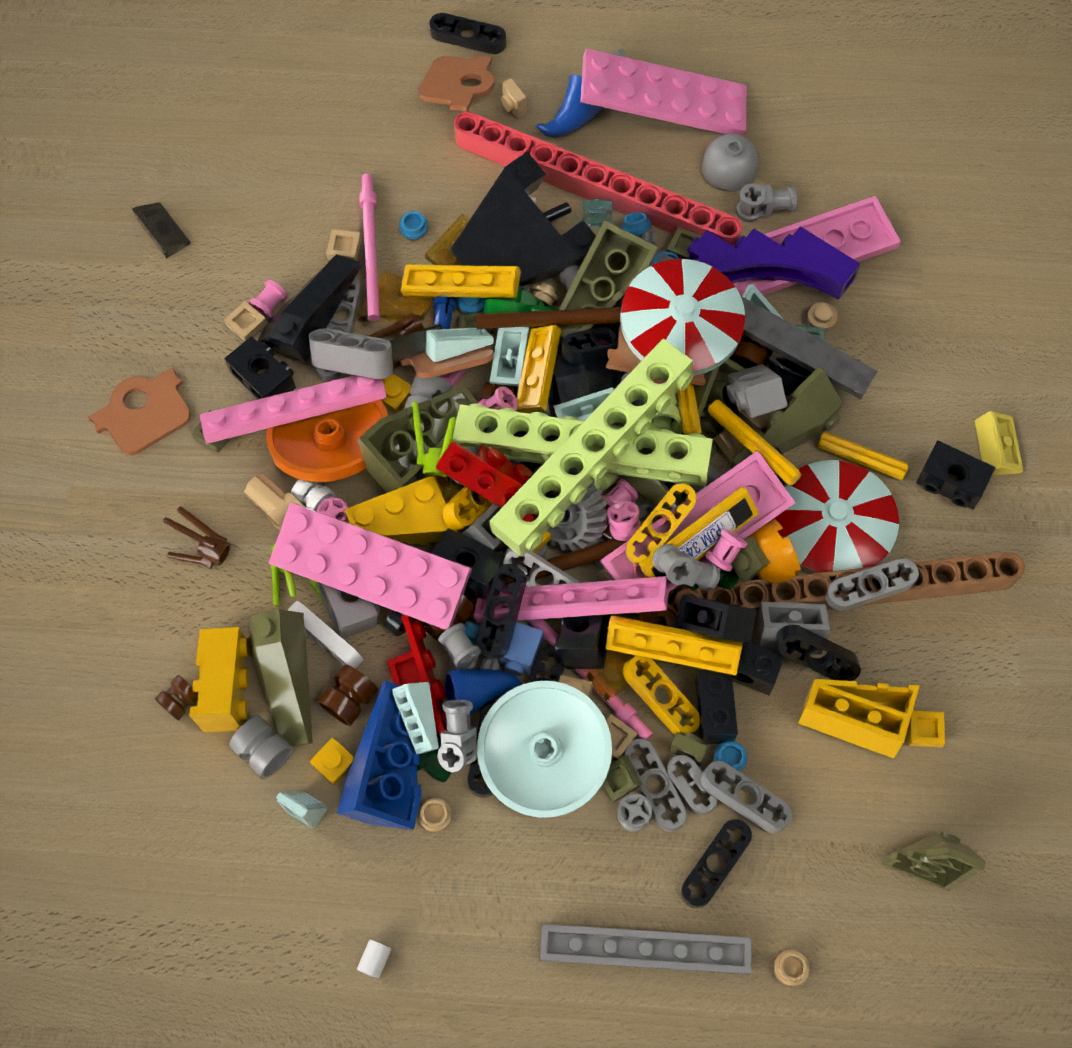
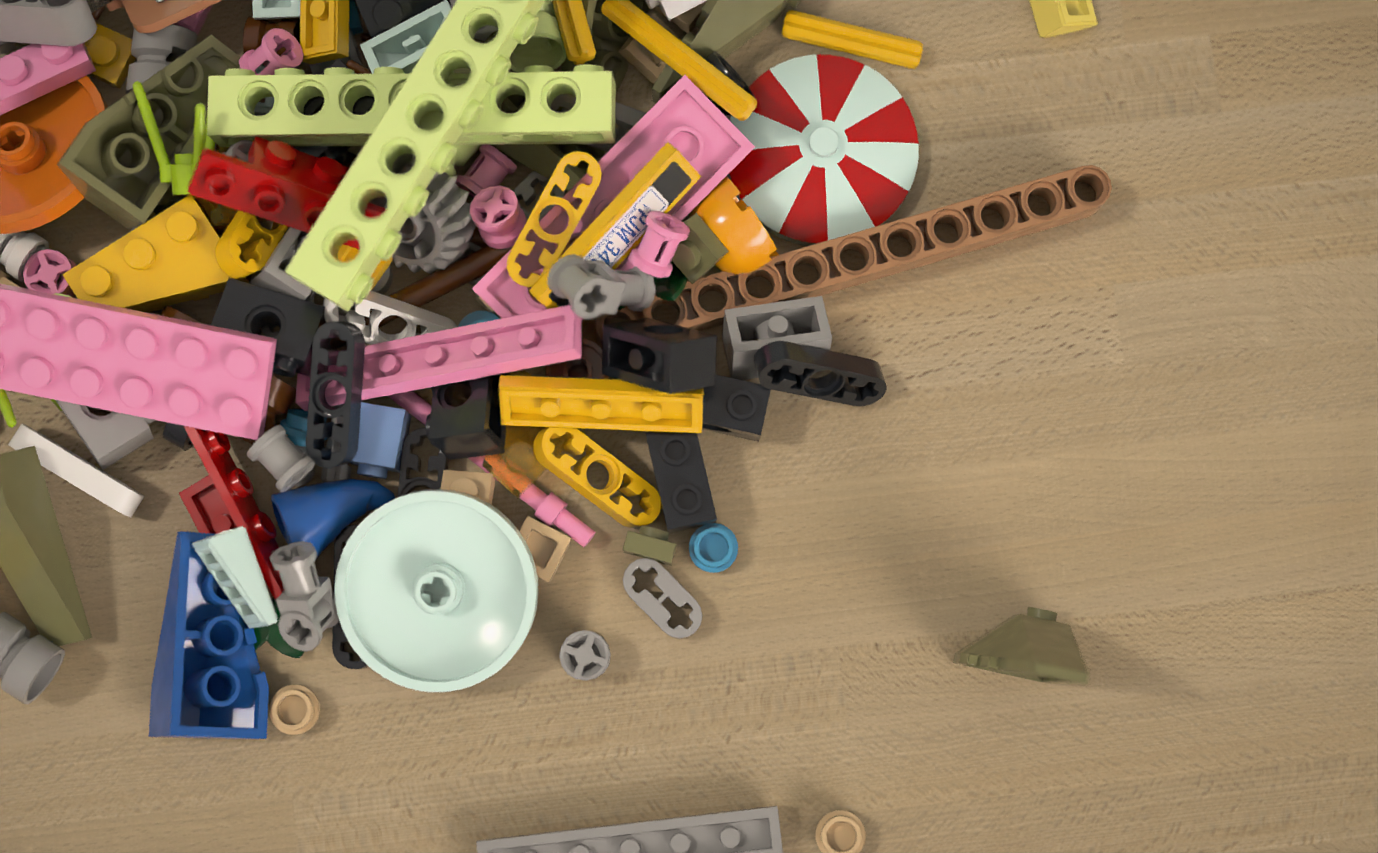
camera: 15 degrees left, 15 degrees up
(302, 807) = (94, 736): light aqua slope -> none
(332, 761) = (128, 656): yellow plate -> none
(347, 695) = (129, 557): reddish brown wheel -> none
(621, 779) = (558, 609): olive tile -> none
(674, 803) = (597, 570): light grey beam -> none
(738, 848) = (709, 746): black beam -> none
(760, 794) = (781, 604): light grey beam -> none
(861, 714) = (894, 453): yellow wedge -> none
(896, 585) = (925, 248): light grey beam -> none
(926, 729) = (992, 455): yellow plate -> none
(971, 471) = (1020, 42): black brick -> none

